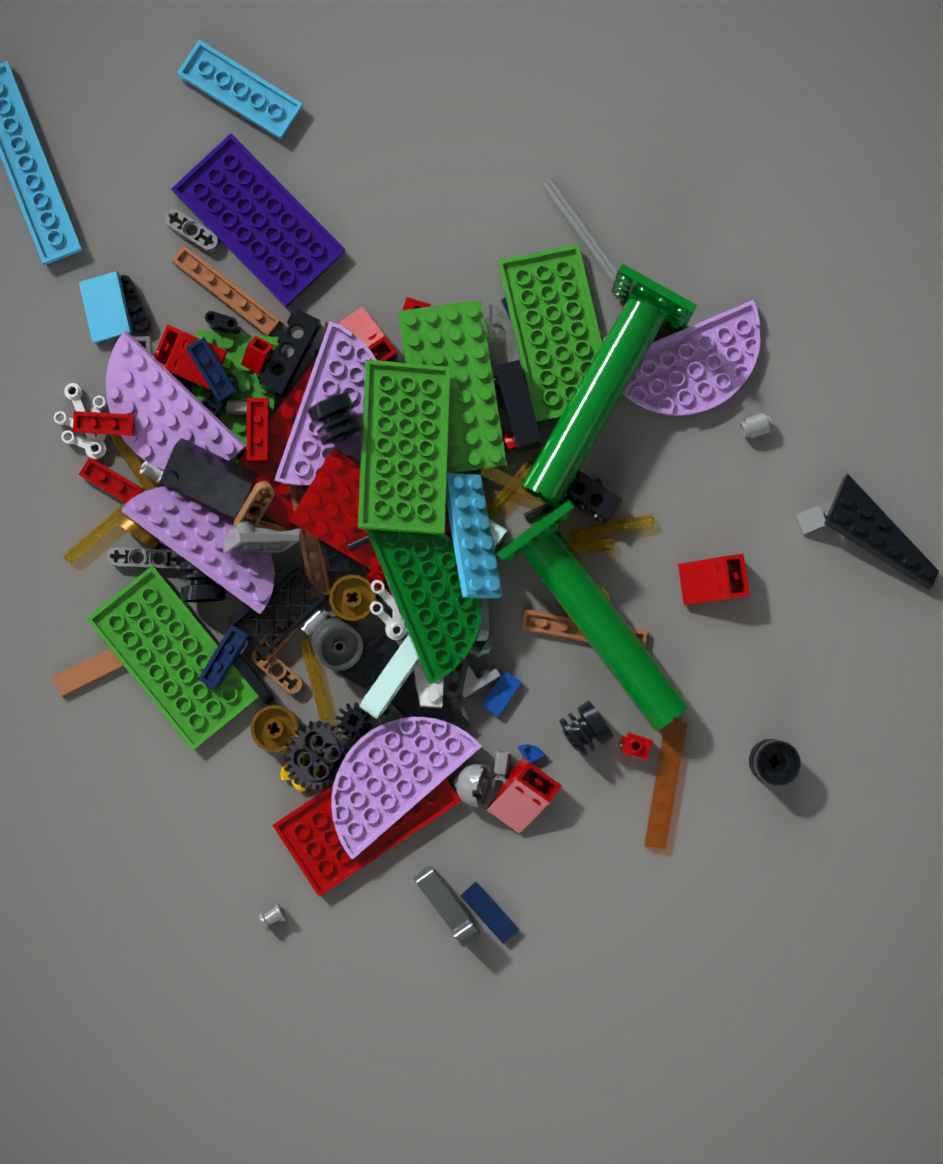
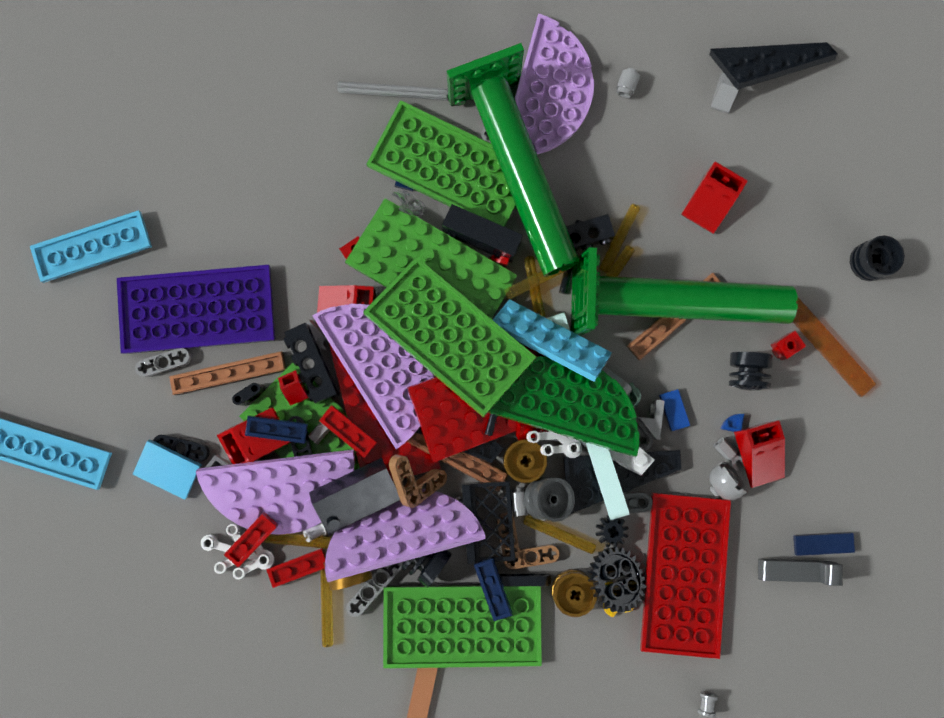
camera: 50 degrees left, 0 degrees up
(248, 539) = (425, 501): light grey slope -> none
(333, 414) = (388, 368): black wheel -> none
(392, 773) = (674, 536): lavender plate -> none

